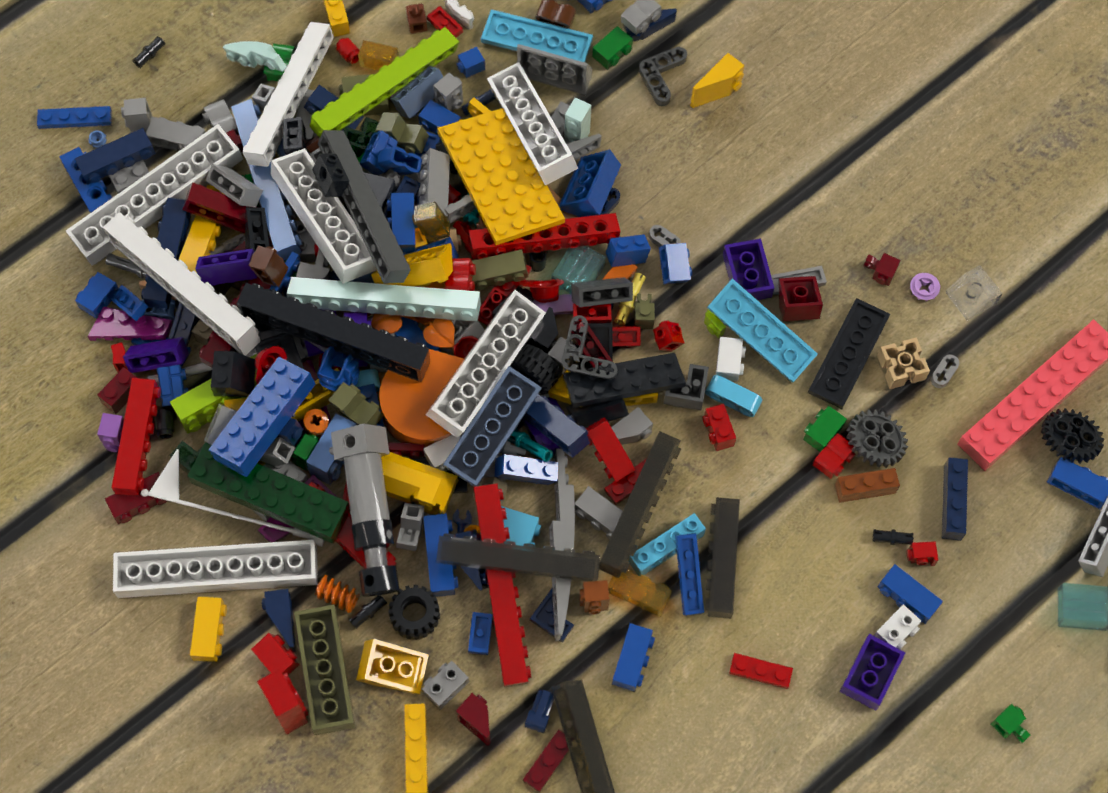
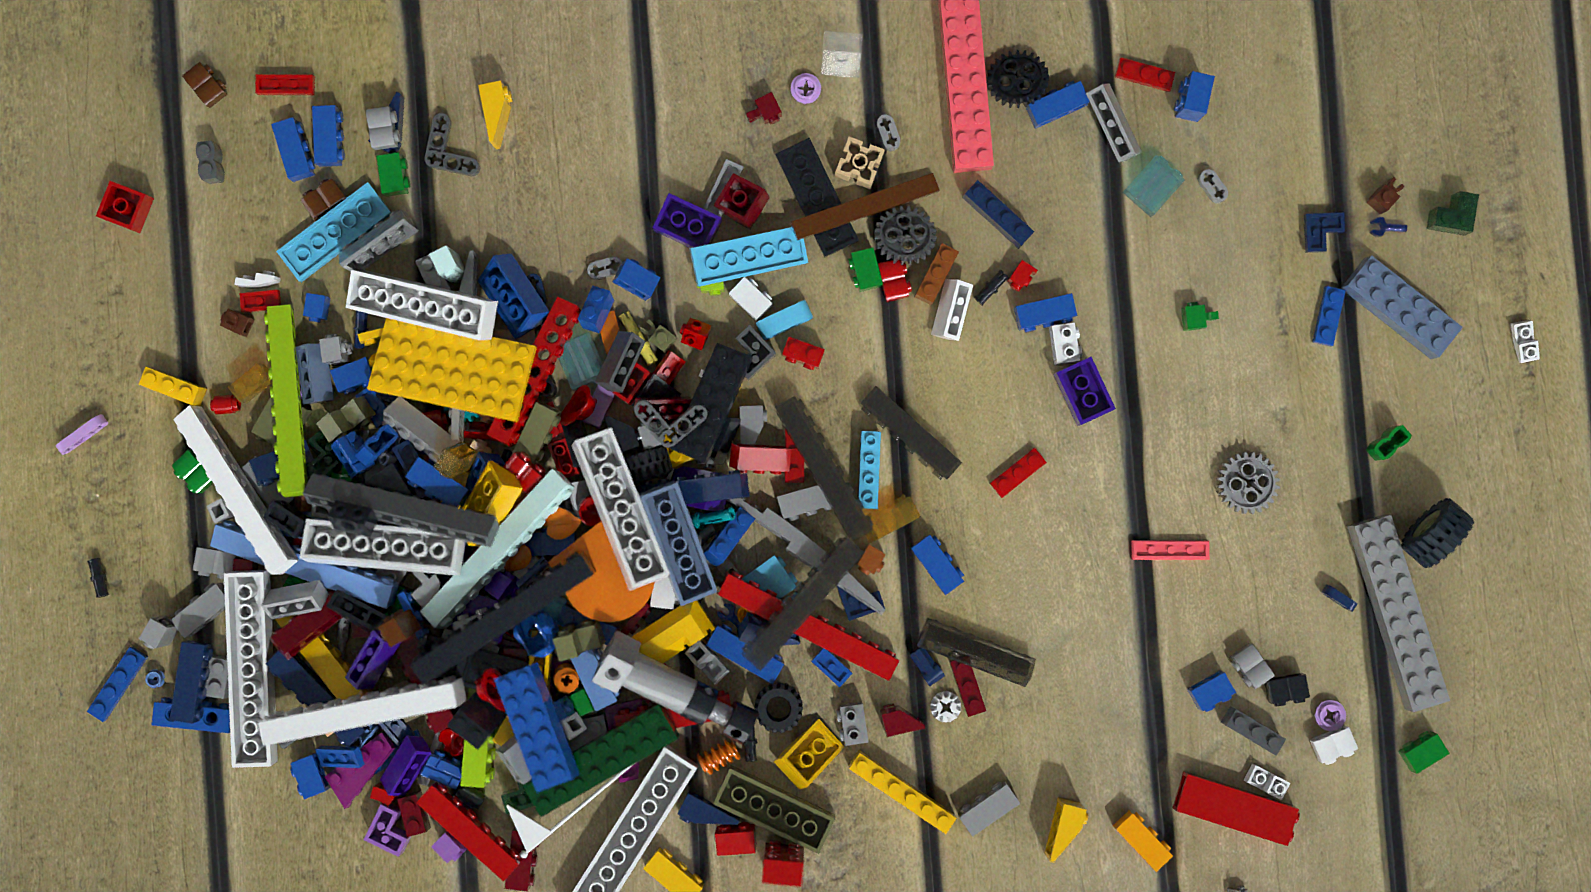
camera: 50 degrees left, 20 degrees up
(89, 376) = (384, 832): none -> medium lavender brick
(201, 374) = (452, 742): none -> red hair
(253, 53) = (172, 492): light aqua slope -> none
(509, 760) = (945, 697): none -> white gear
(689, 574) = (906, 472): blue plate -> none
(849, 516) = (952, 309): none -> white brick
(873, 392) = (864, 206): none -> reddish brown tile

